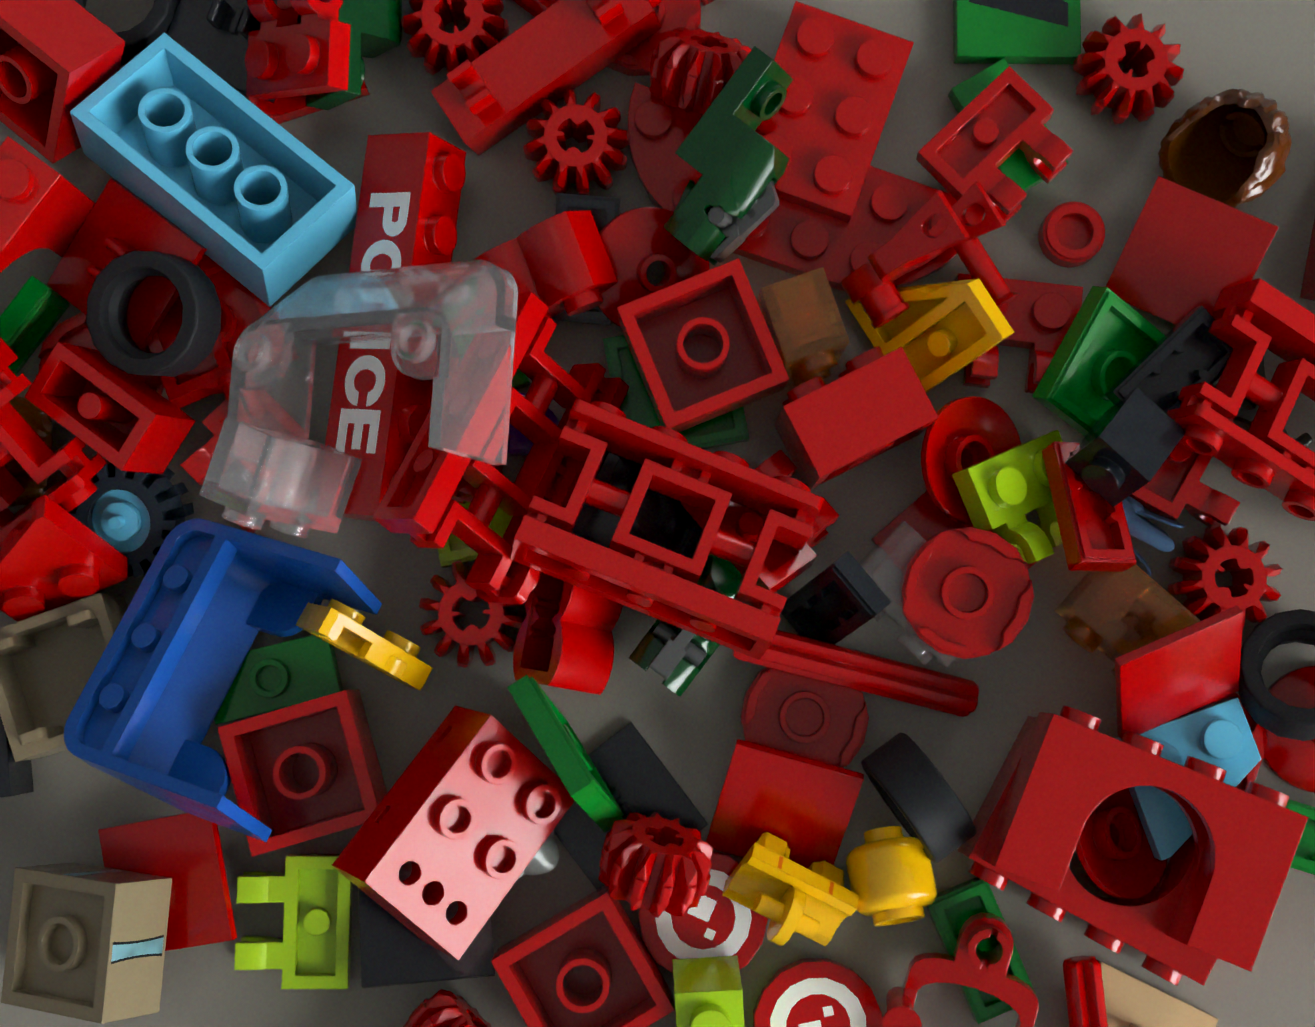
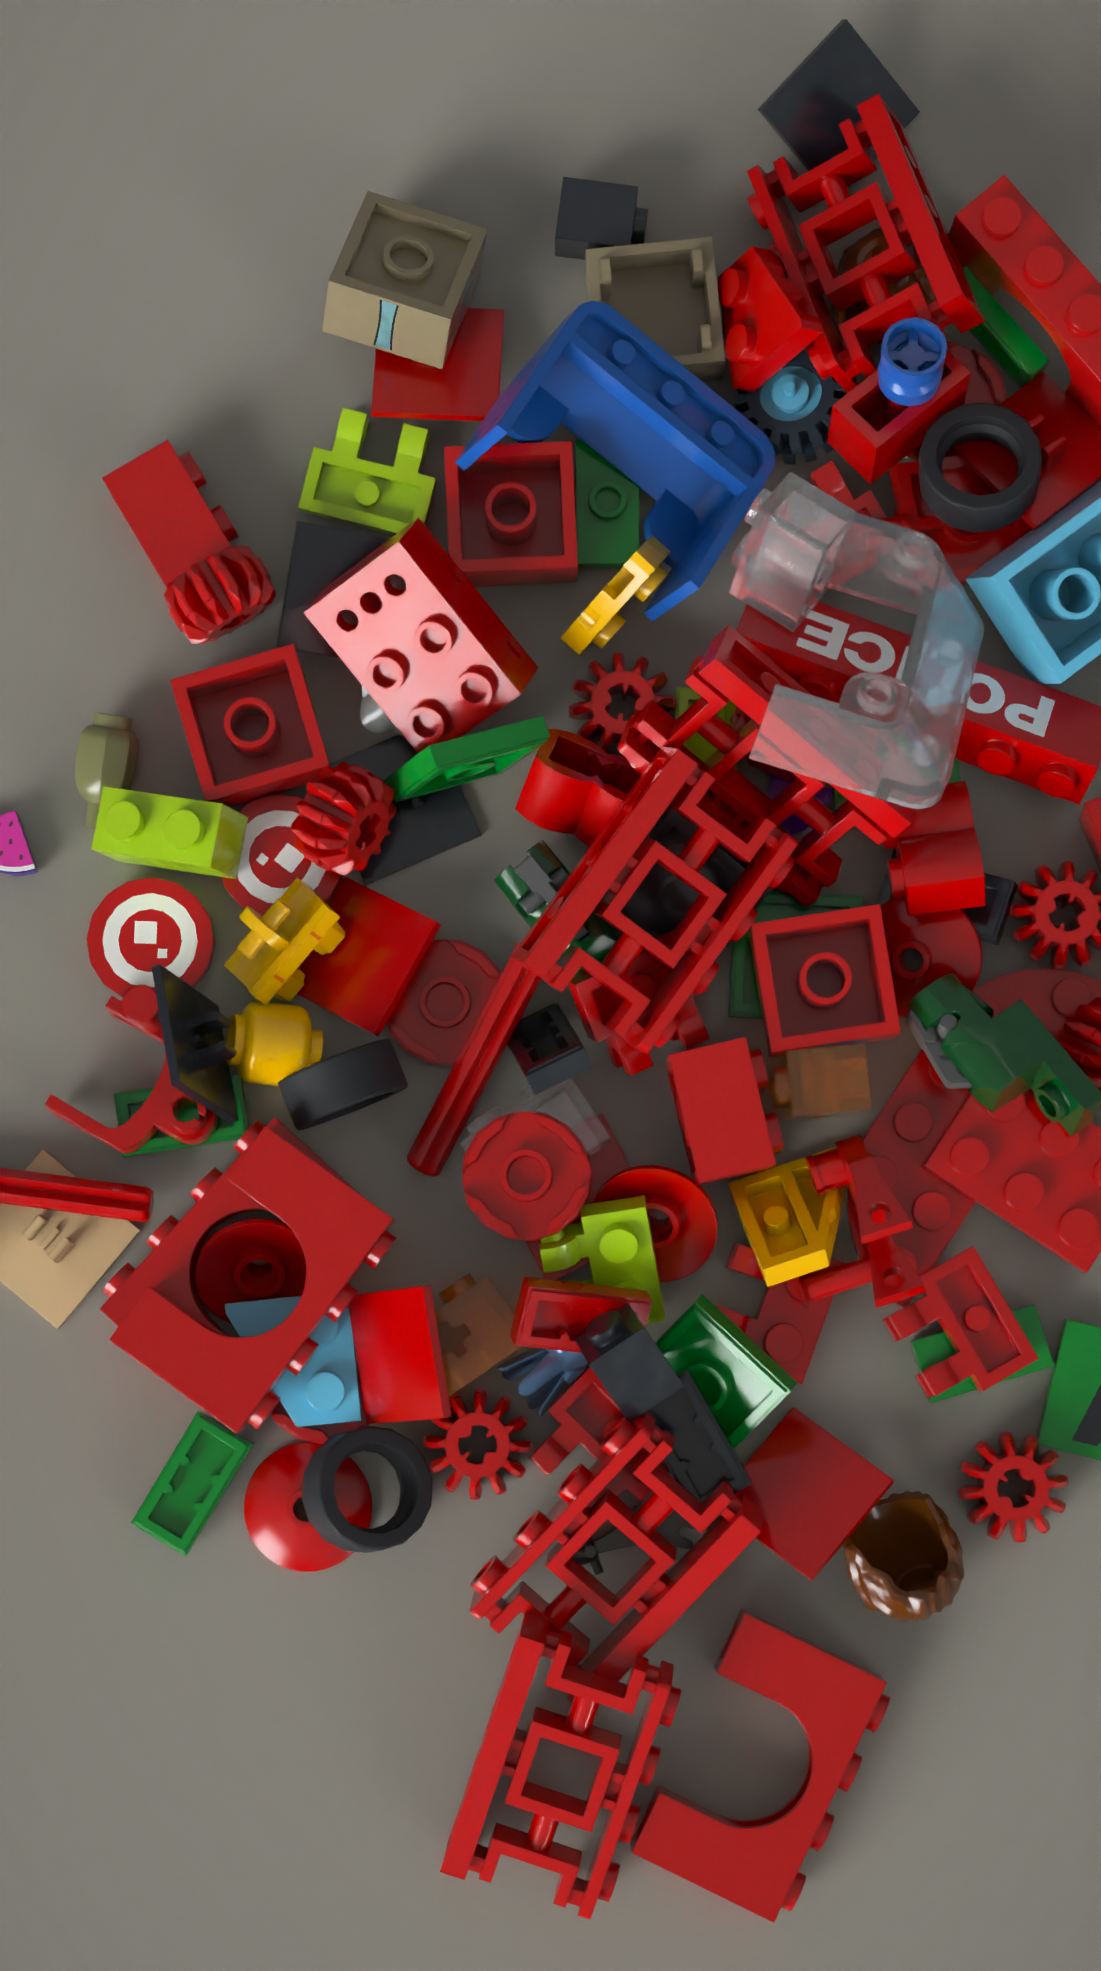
camera: 105 degrees right, 0 degrees up
(45, 387) = (915, 346): none -> blue wheel
(921, 958) = (195, 1044): none -> black piece
(1071, 234) = (859, 1390): red tile -> none

